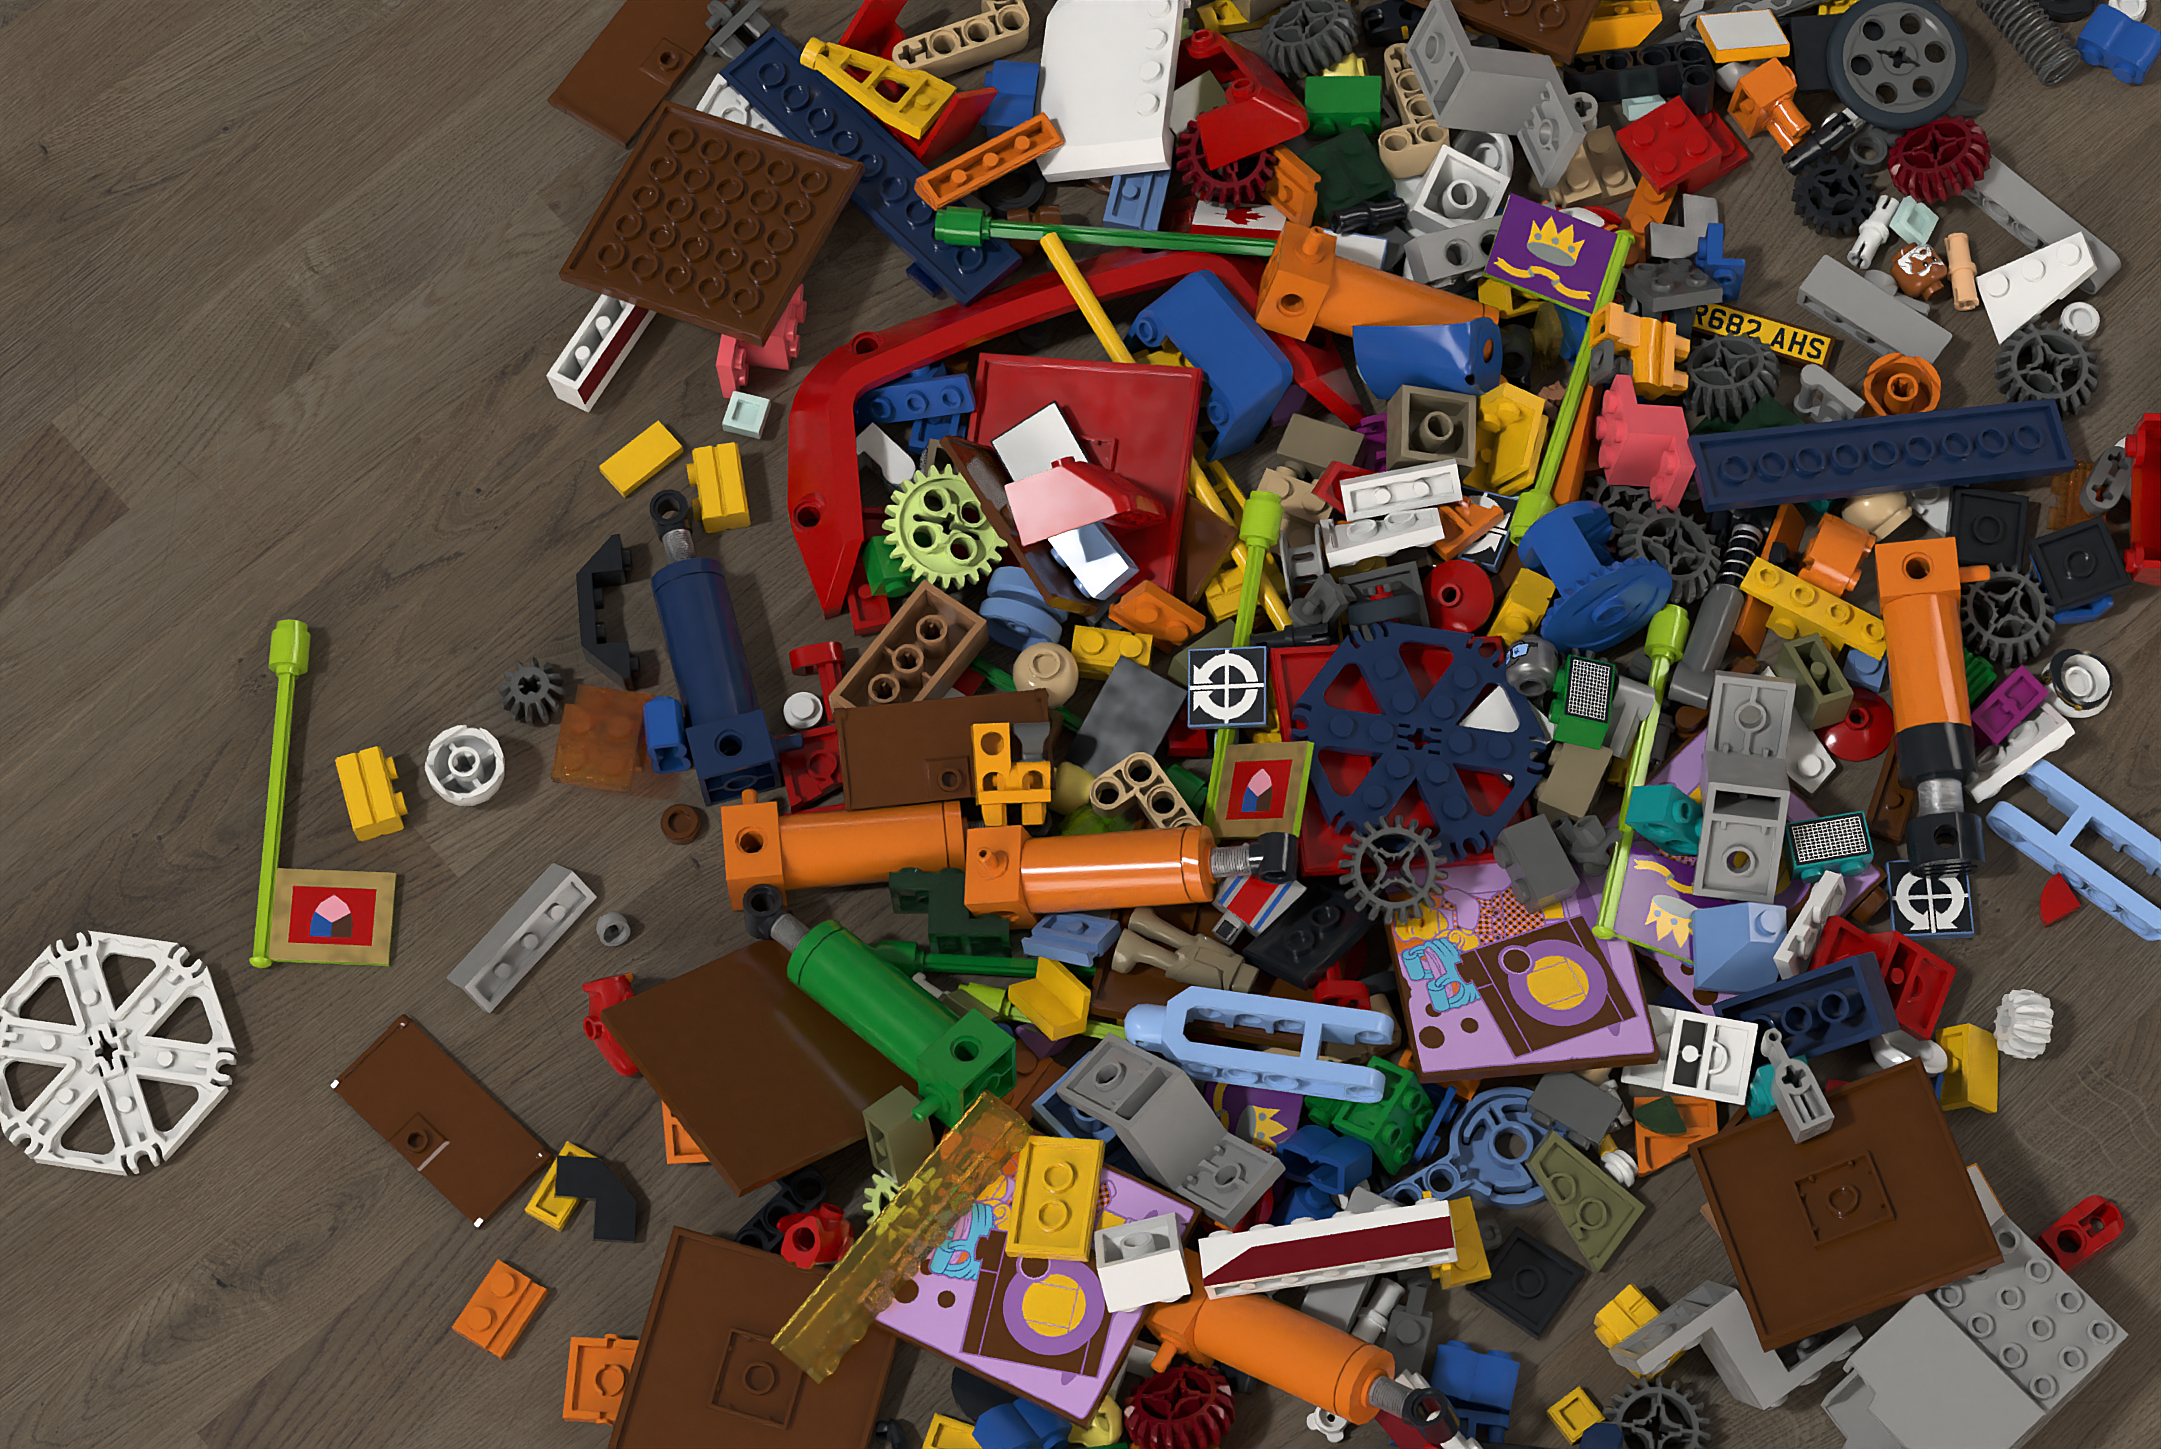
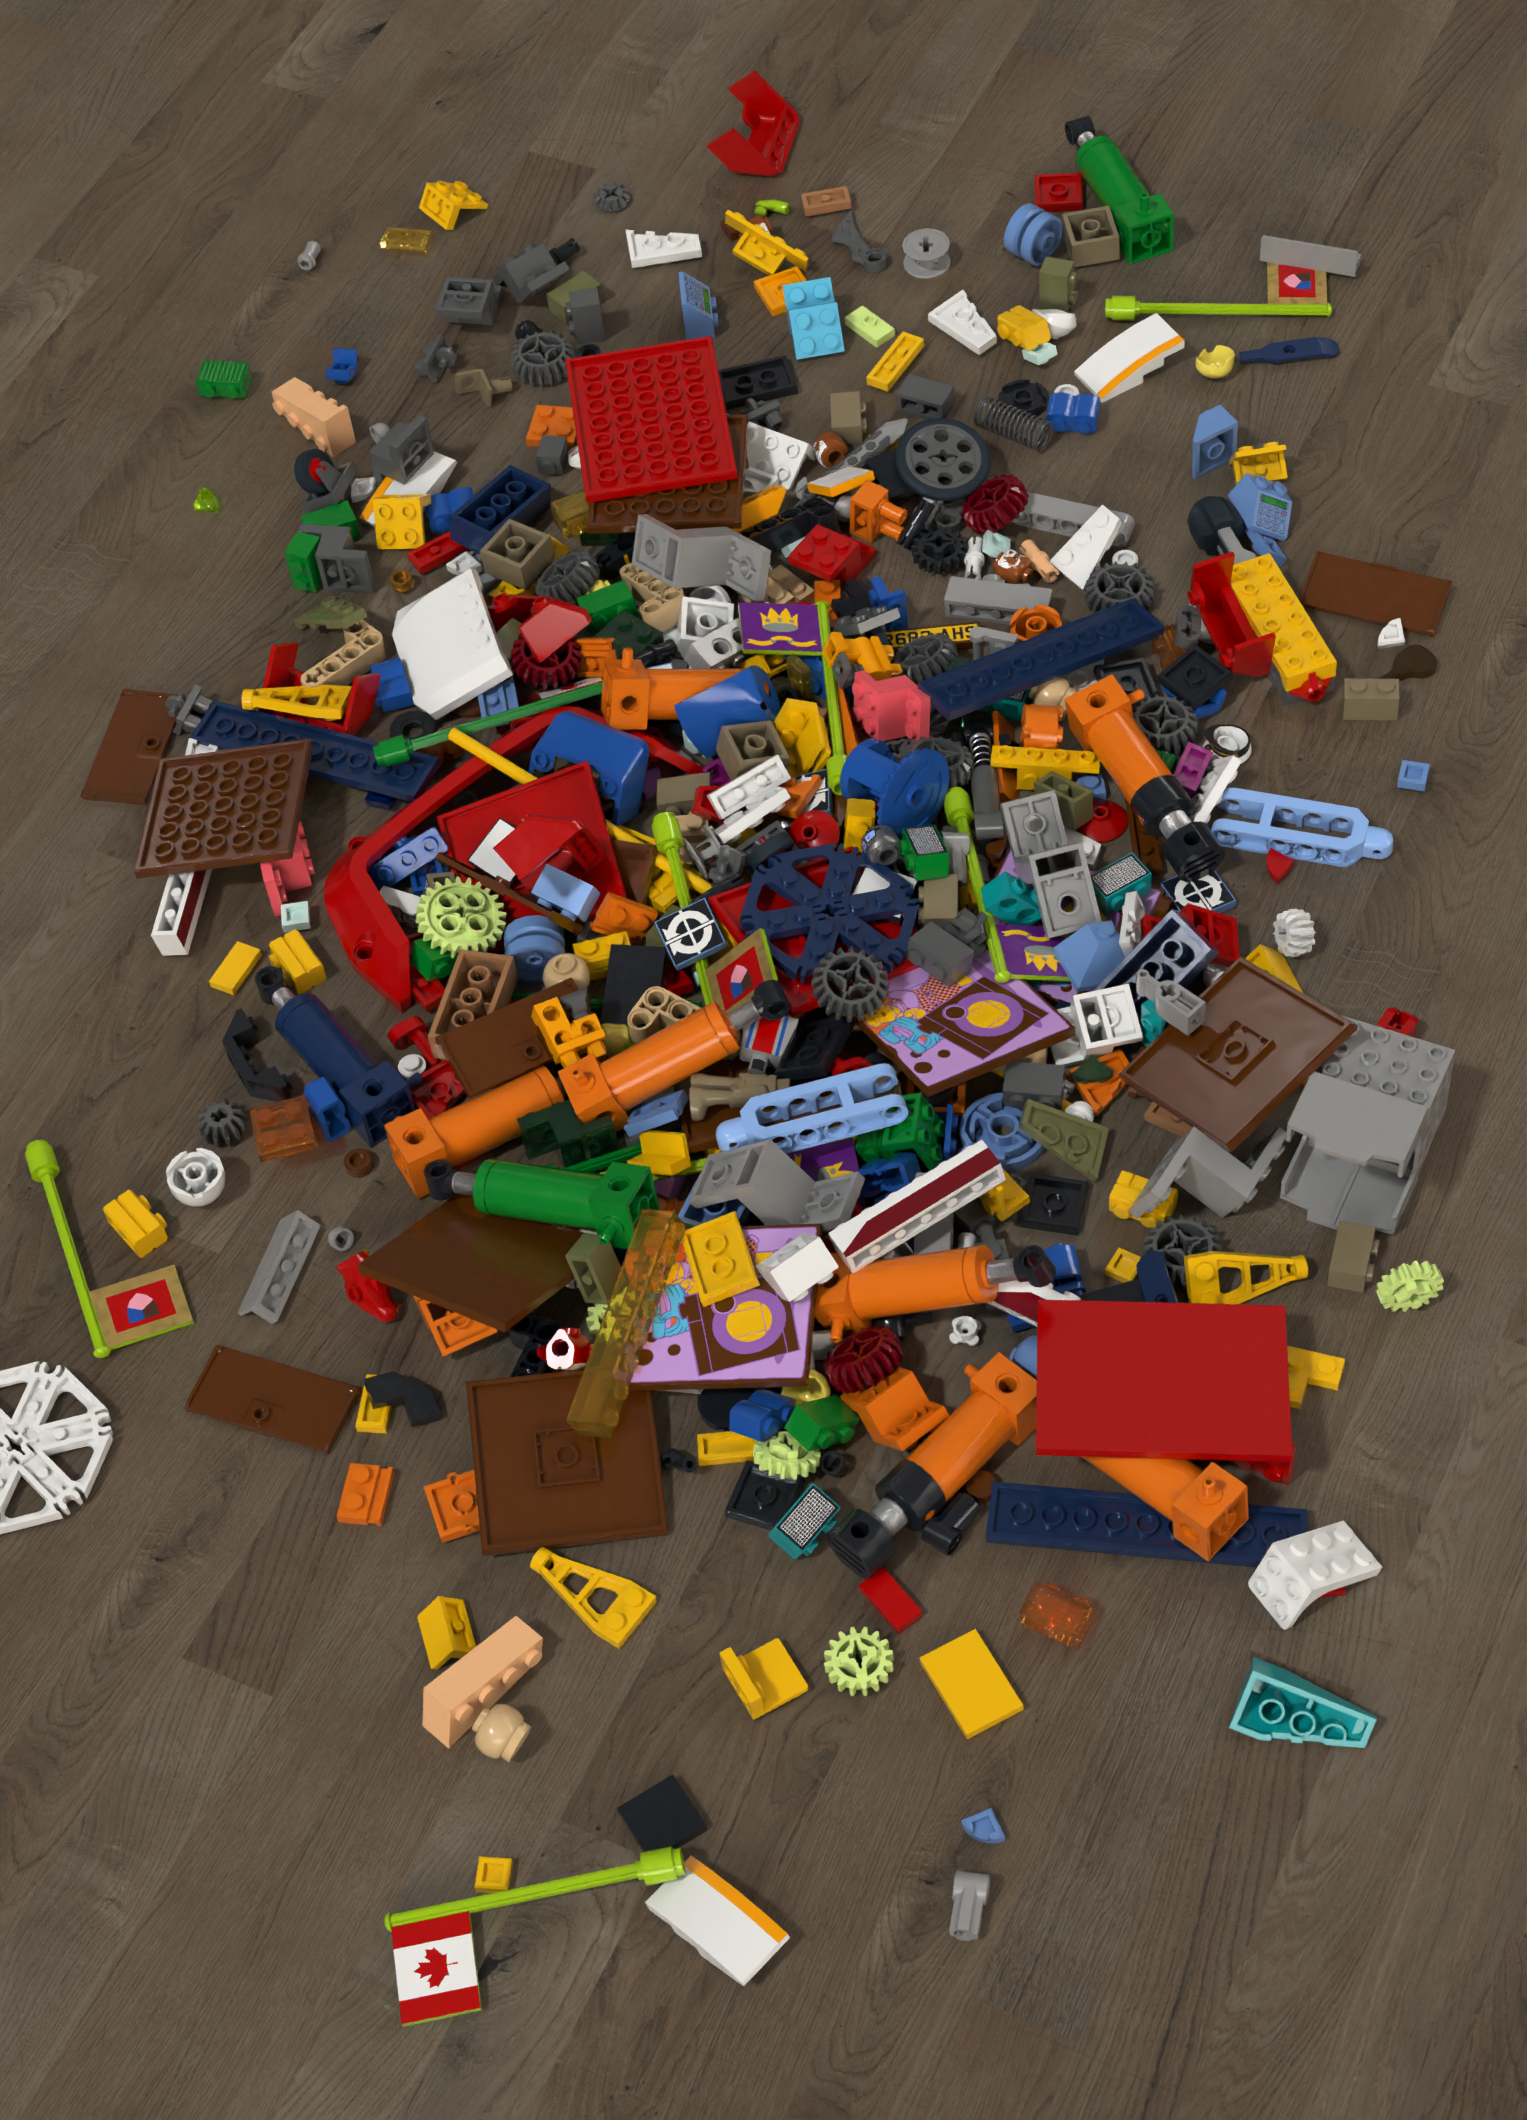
camera: 20 degrees left, 15 degrees down
(988, 162) = (391, 714): orange slope -> none

